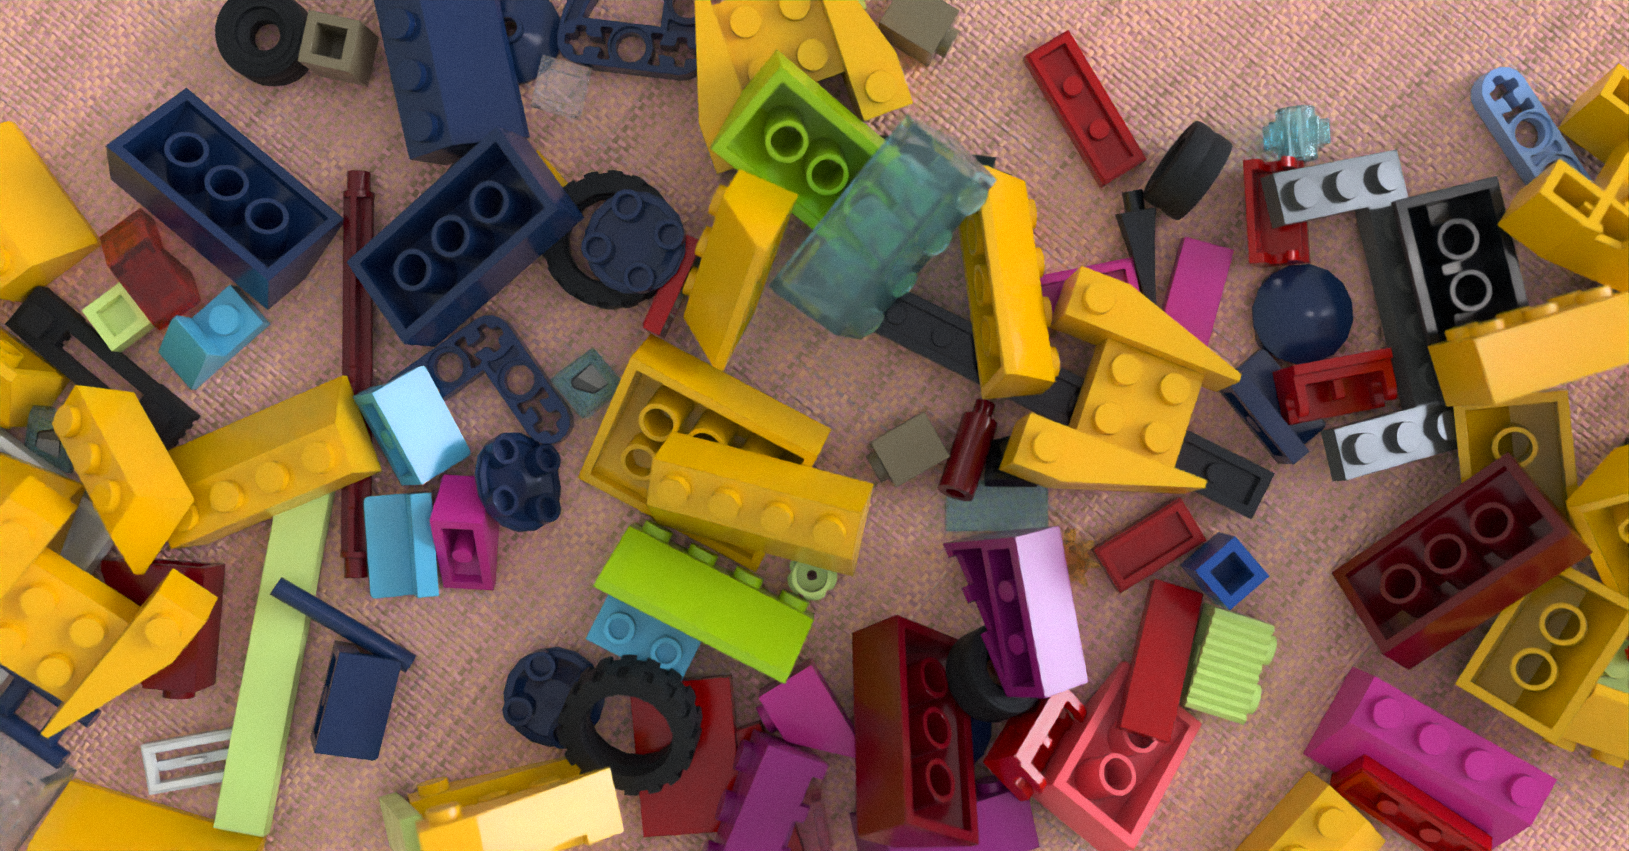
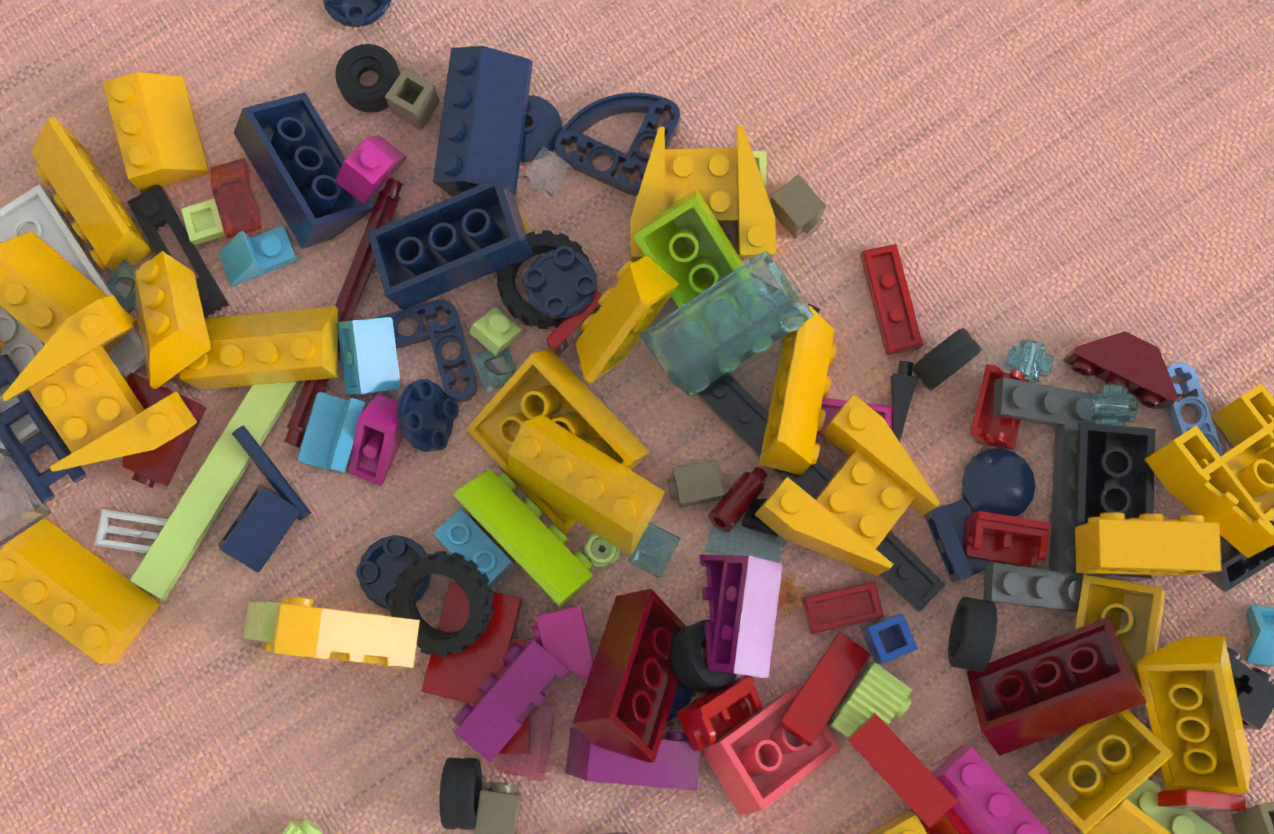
camera: 25 degrees right, 10 degrees down
(315, 165) = (369, 167): none -> dark pink slope
(569, 334) = (495, 331): none -> yellowish green plate
(882, 552) = (654, 550): none -> clear light blue slope
(1197, 286) = (932, 441): dark pink tile -> none
(1294, 735) = (902, 770): none -> red tile
(1331, 529) = (972, 634): none -> black tyre
(1429, 96) = (1126, 362): none -> dark red slope
(1429, 161) = (1114, 406): none -> clear light blue gear

